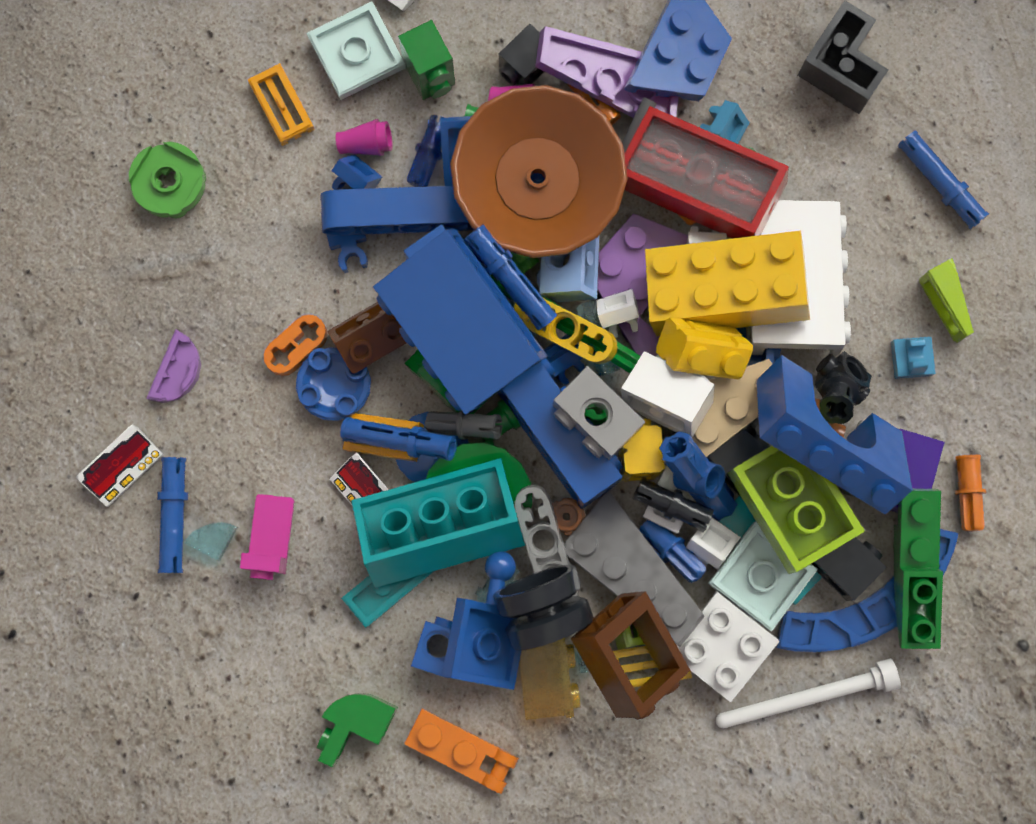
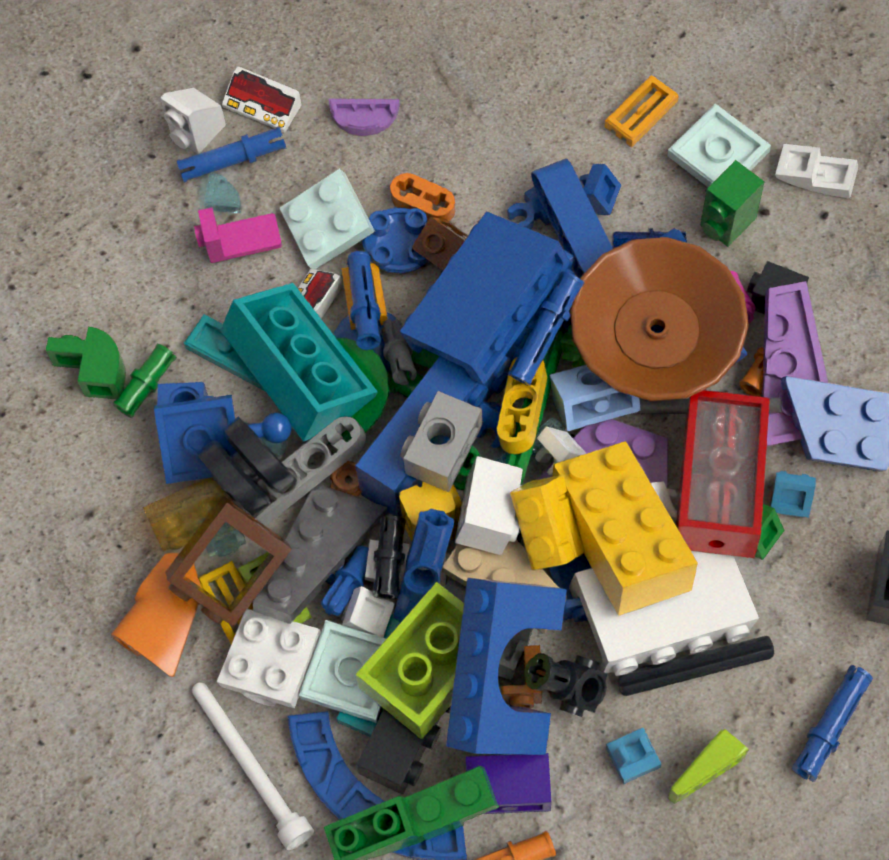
camera: 75 degrees right, 15 degrees down
(119, 540) = (192, 118): none -> white slope
(175, 199) = (531, 63): bright green plate -> none
(286, 445) = (327, 219): none -> light aqua plate
(366, 139) = (640, 189): dark pink cone -> none
(392, 678) = (144, 380): none -> green pin
(460, 750) = (97, 462): orange plate -> none
(648, 745) = (159, 619): none -> orange panel
(853, 278) = (696, 665): none -> black axle

